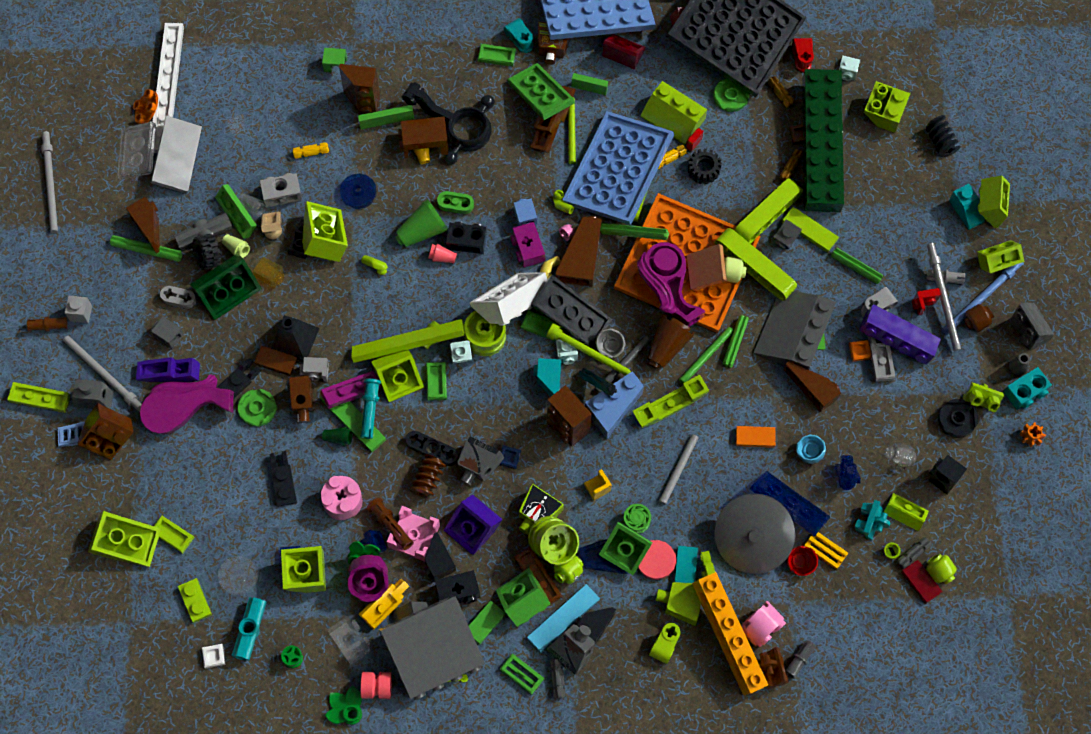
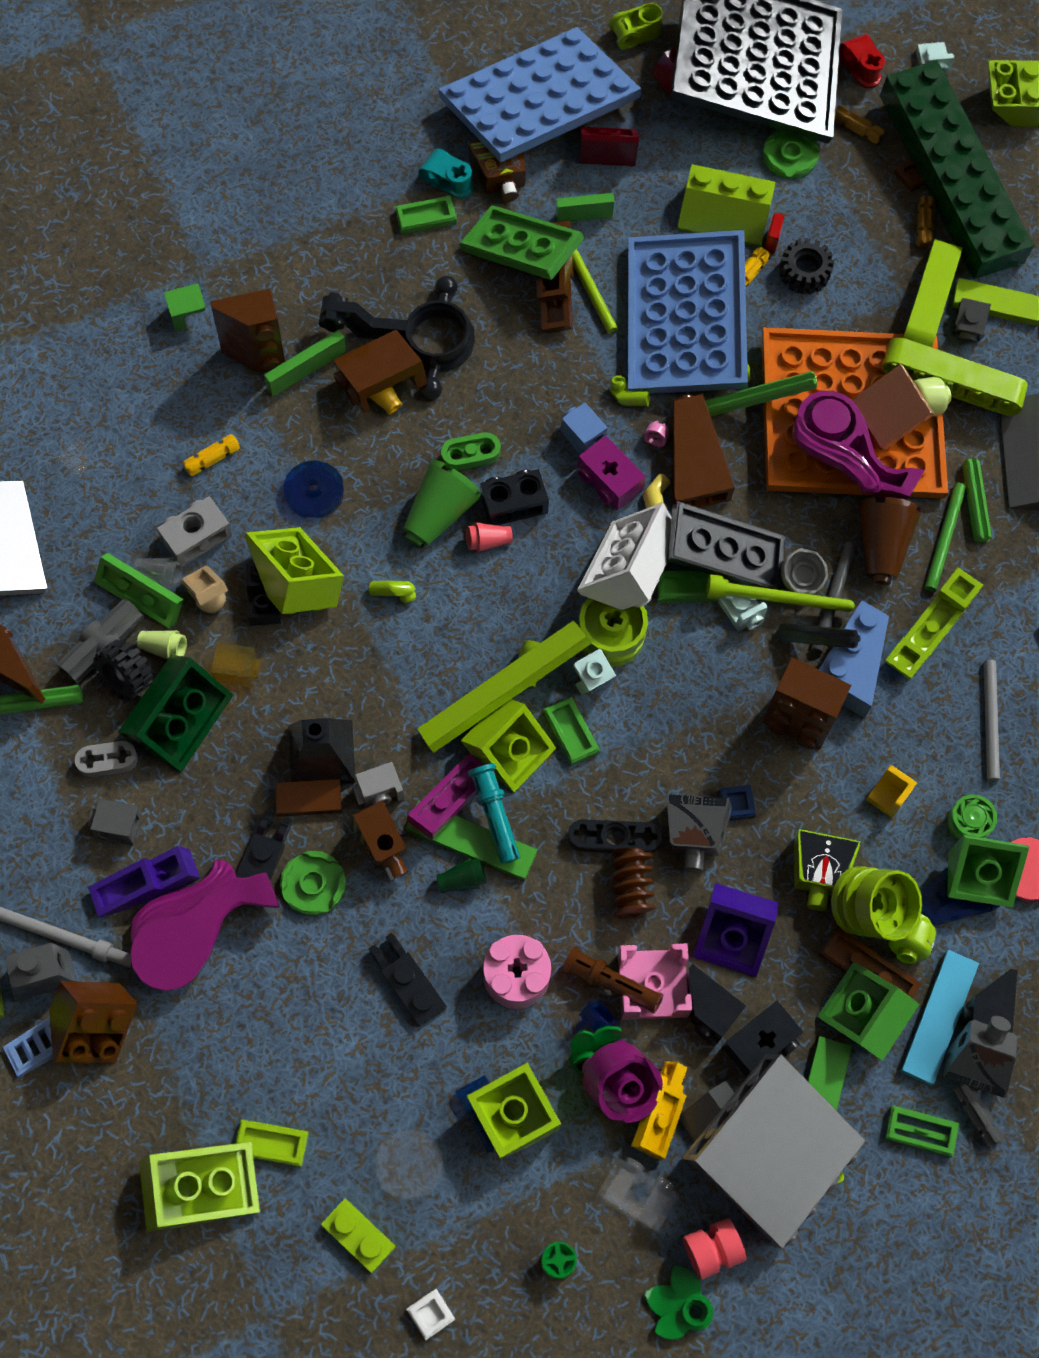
camera: 25 degrees left, 0 degrees up
(245, 641) = (473, 1268): teal piece -> none
(548, 374) = (739, 657): teal slope -> none

